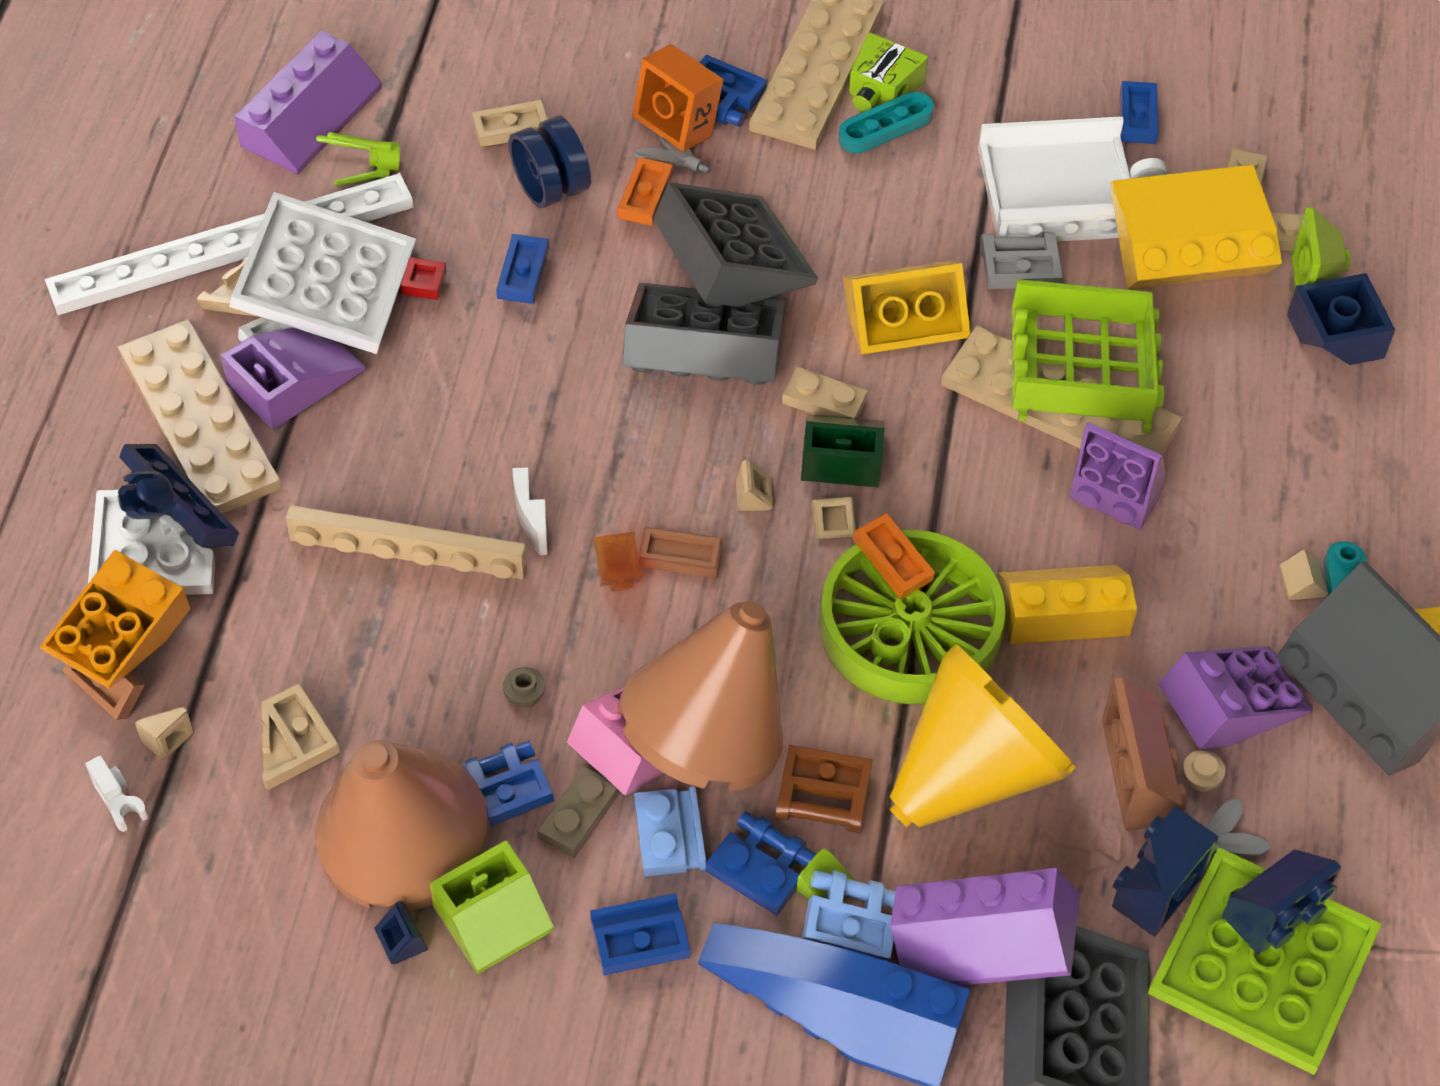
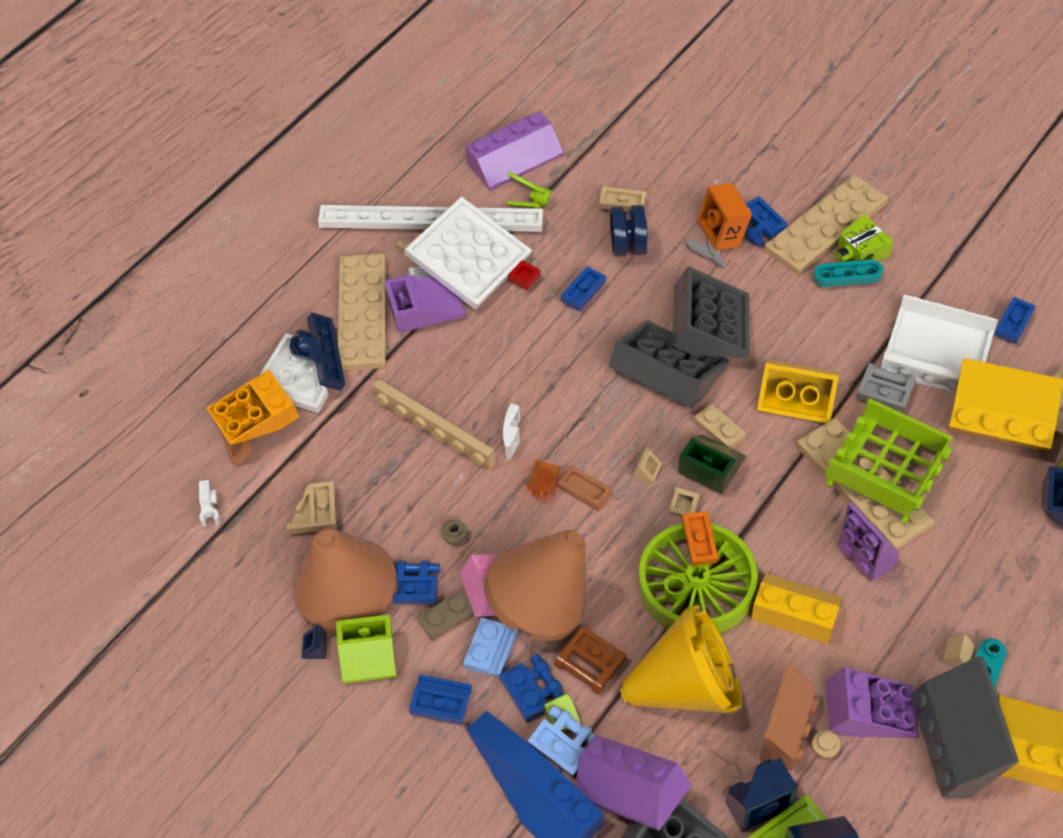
camera: 30 degrees right, 0 degrees up
(165, 731) = (252, 480): tan slope -> none
(644, 191) = (677, 264): orange plate -> none
(1148, 167) = (999, 358): white tile -> none
(1237, 843) = (815, 790): light grey piece -> none

